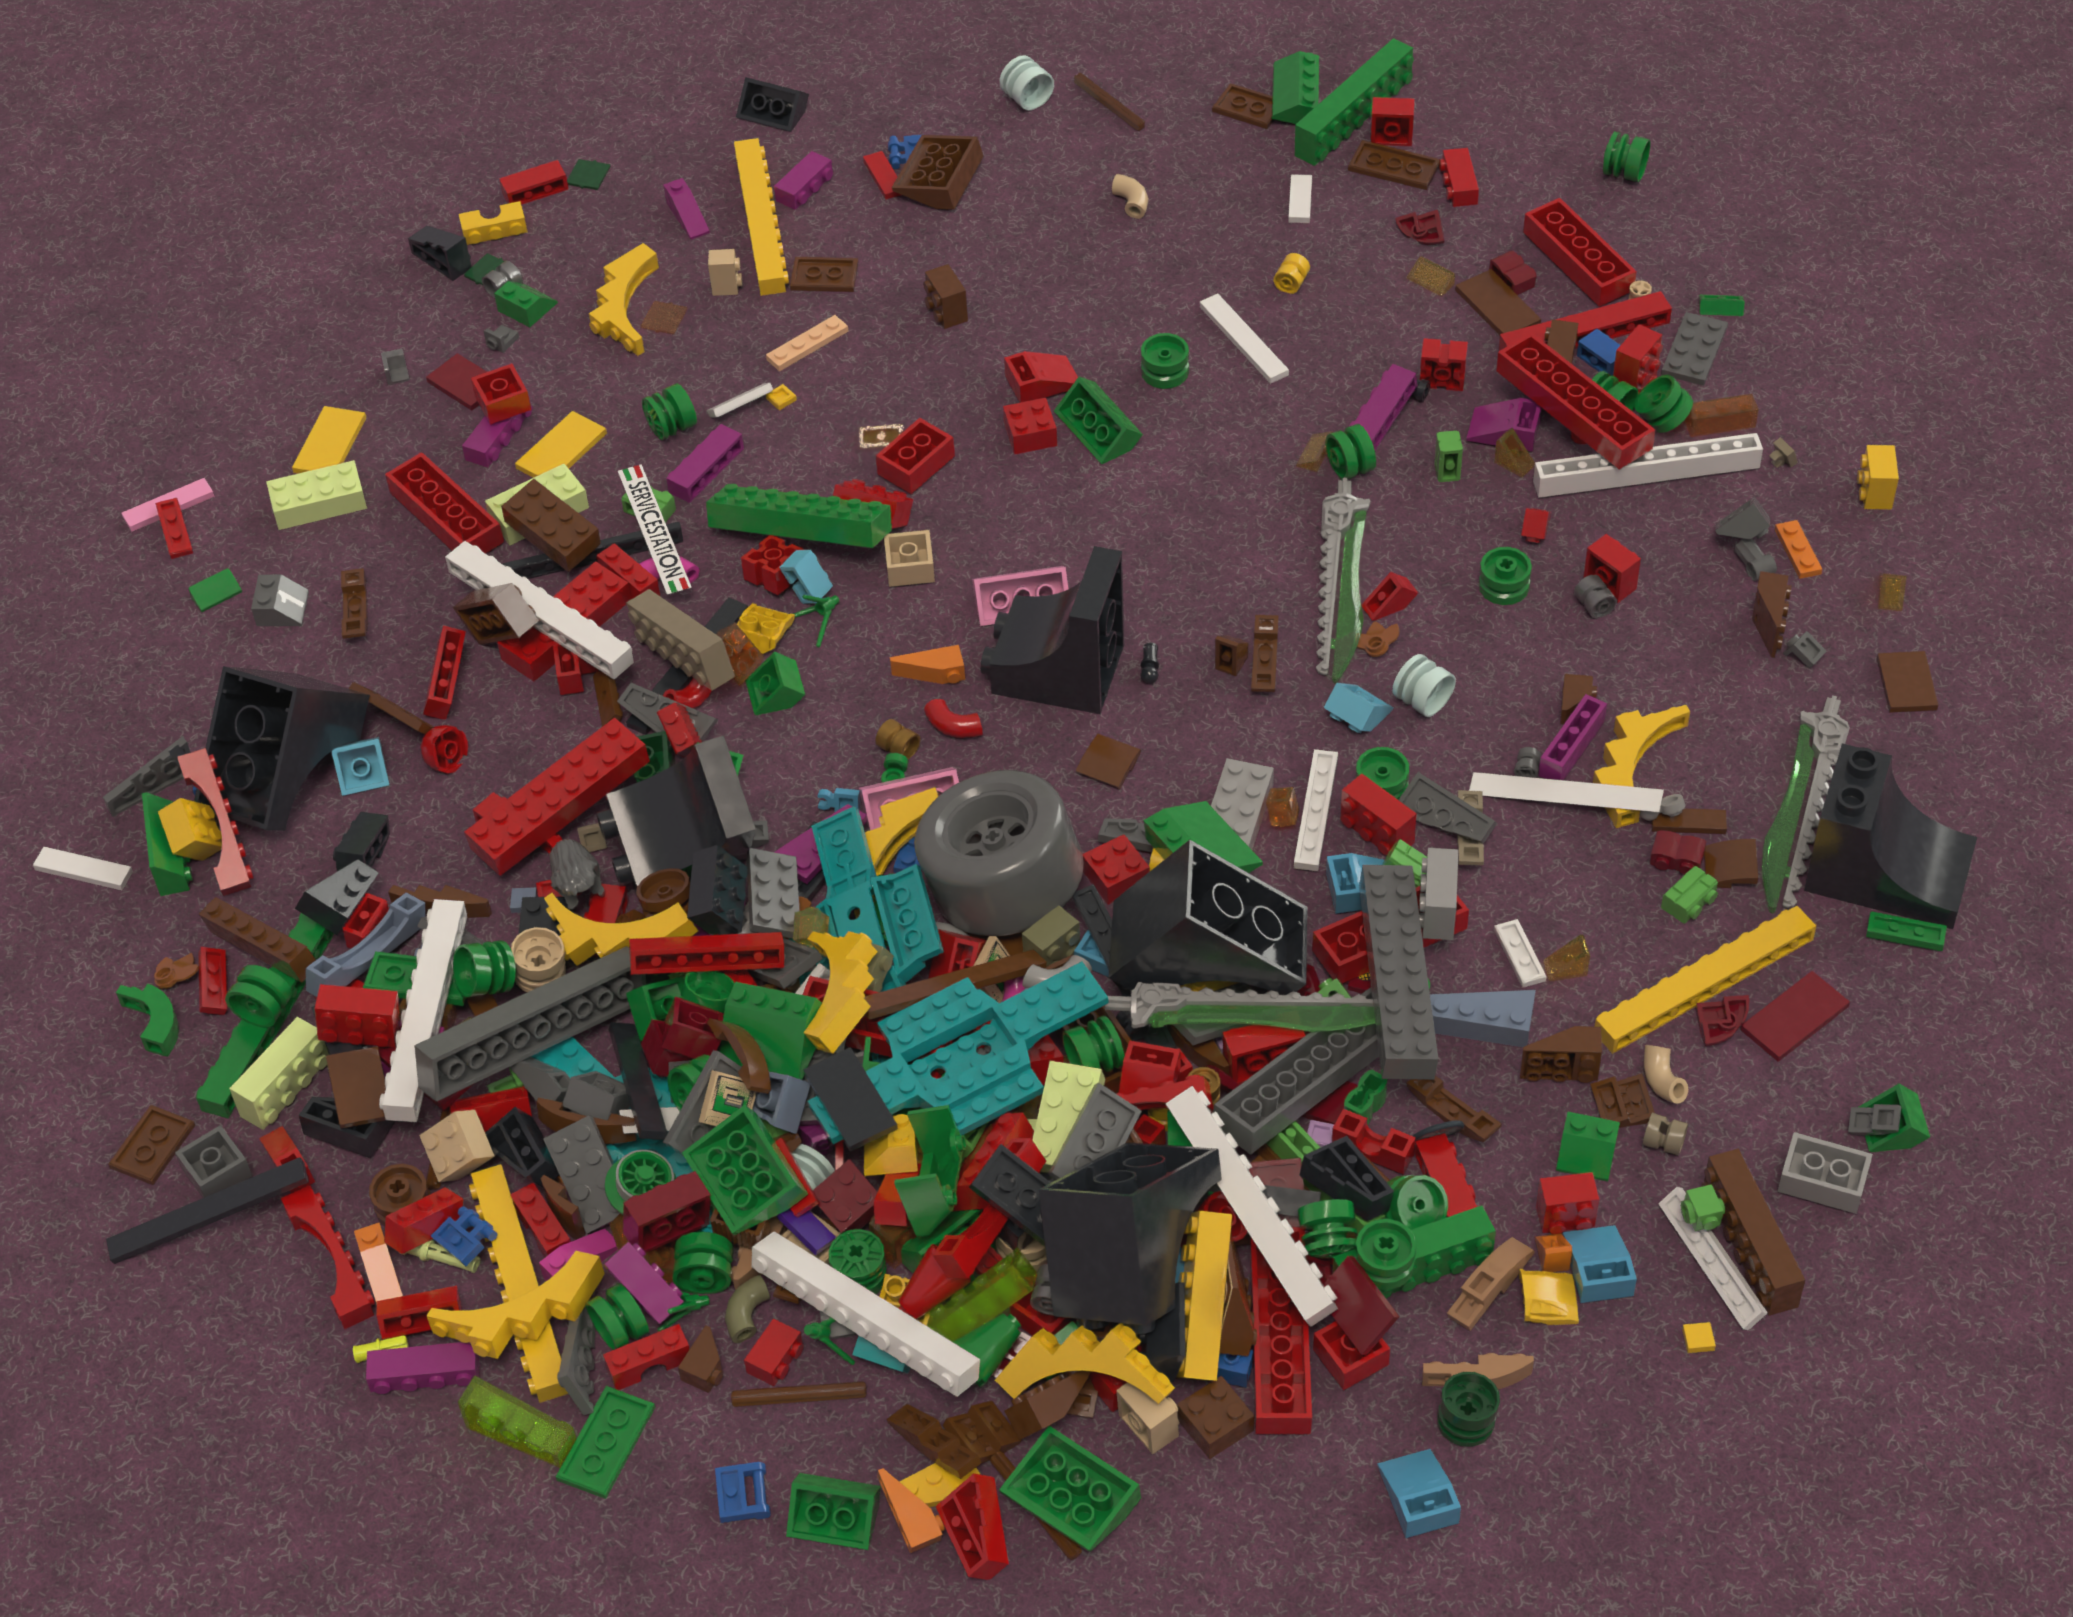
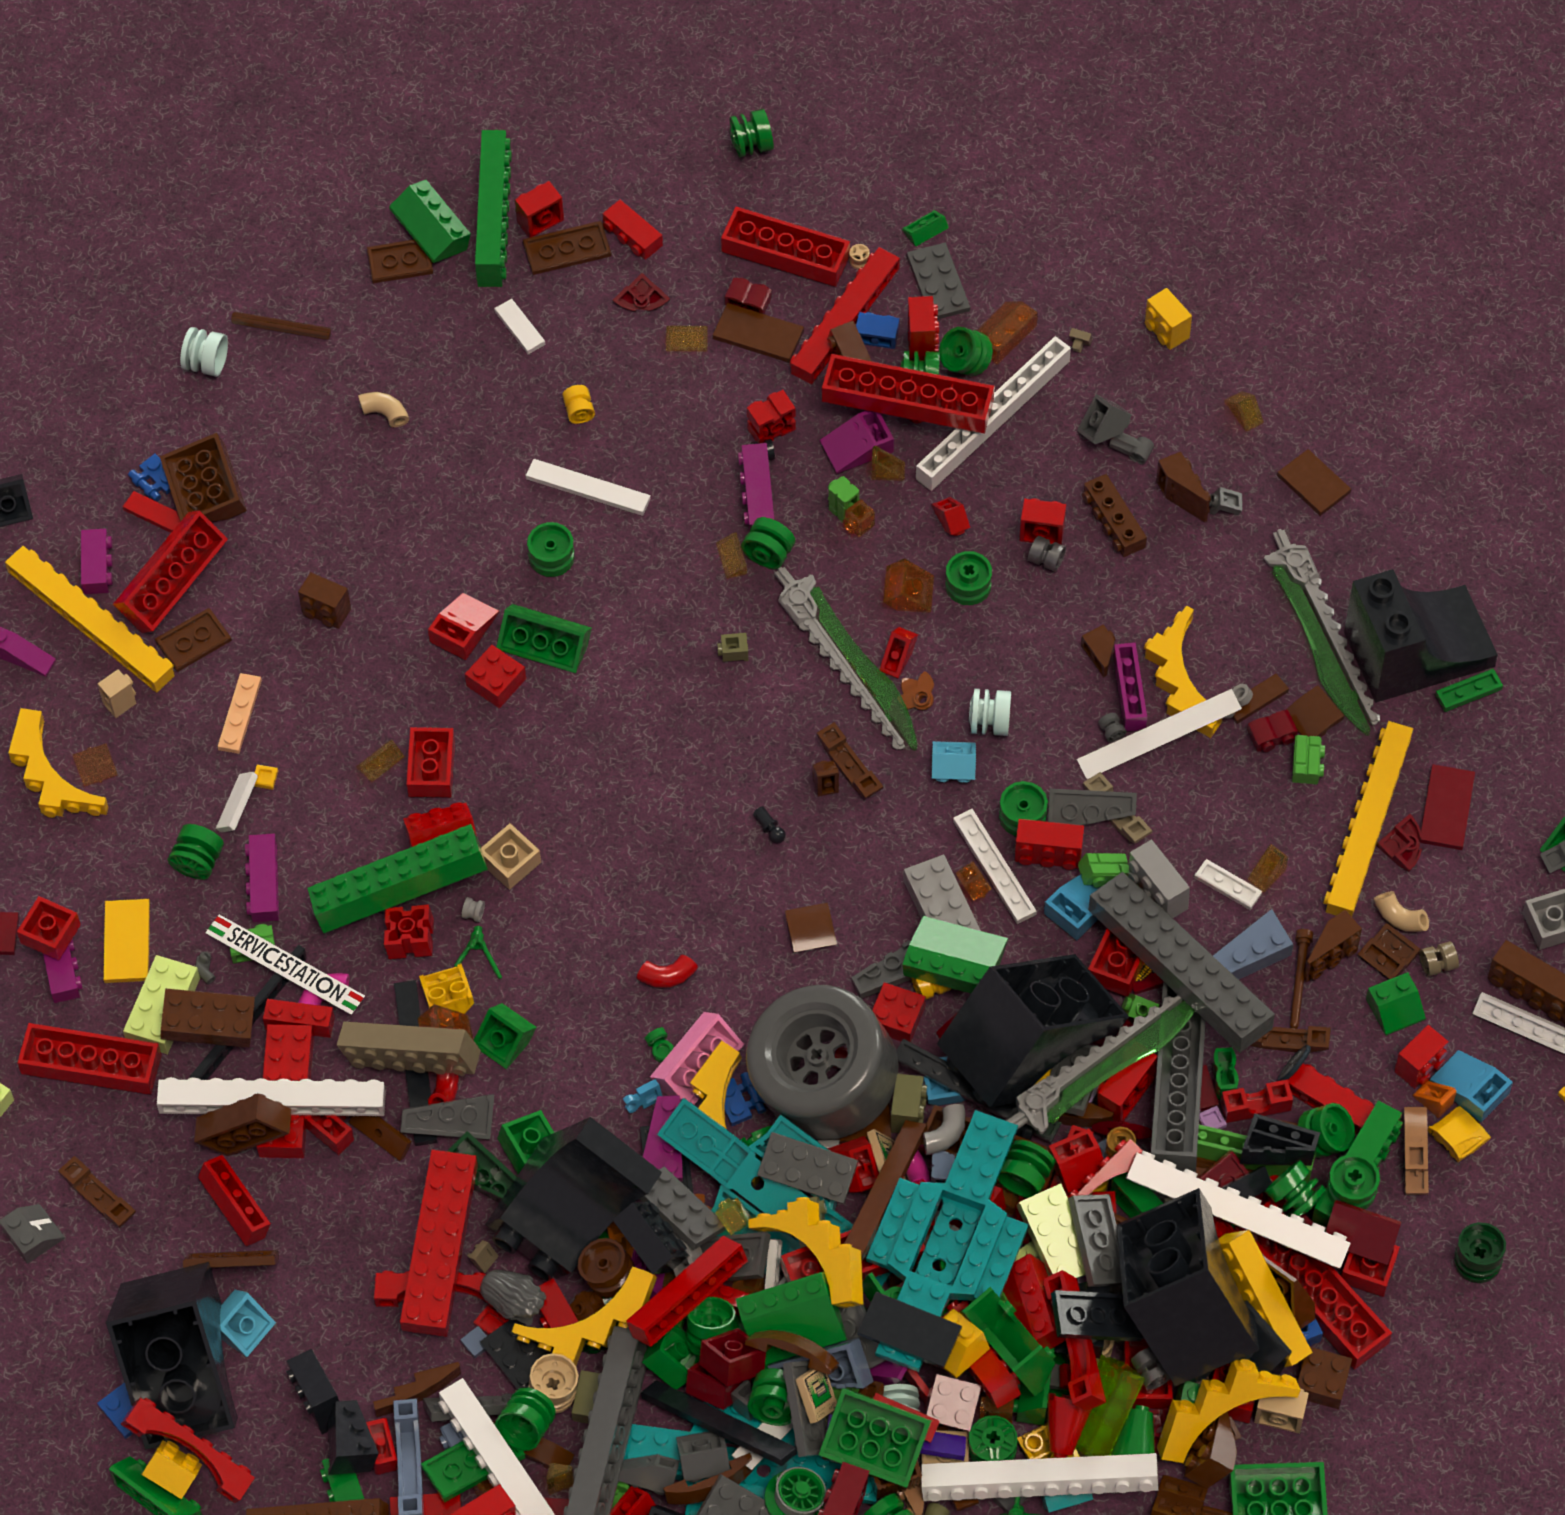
camera: 40 degrees left, 10 degrees up
(151, 778) = (86, 1448): dark grey wing -> none
(442, 744) = (294, 1264): red cylinder -> none
(598, 498) = (203, 964): none -> dark grey arm
(679, 728) = (476, 1123): red brick -> none
(811, 576) = (447, 926): medium azure piece -> none
(843, 581) = (473, 909): none -> light grey wheel
(848, 212) = (170, 571): none -> red brick
(897, 739) = (641, 1017): pearl gold wheel -> none
(901, 923) = (807, 1168): none -> dark grey plate
(934, 665) = (611, 935): orange slope -> none
(997, 592) = (622, 830): bright pink slope -> none
(1063, 643) = (705, 853): black brick -> none
(1249, 515) = (733, 647): none -> olive brick
(1420, 1493) = (1493, 1332): dark azure slope -> none
(1446, 555) = (908, 587): none -> clear orange slope
(1450, 479) = (859, 518): none -> clear orange brick
(1500, 1369) = (1465, 1214): medium nougat slope -> none
(1505, 1078) = (1304, 938): none -> reddish brown piece
(1687, 604) = (1114, 515): none -> reddish brown brick
(1702, 1208) = (1514, 1000): bright green brick -> none
(1798, 549) = (1153, 416): orange plate -> none

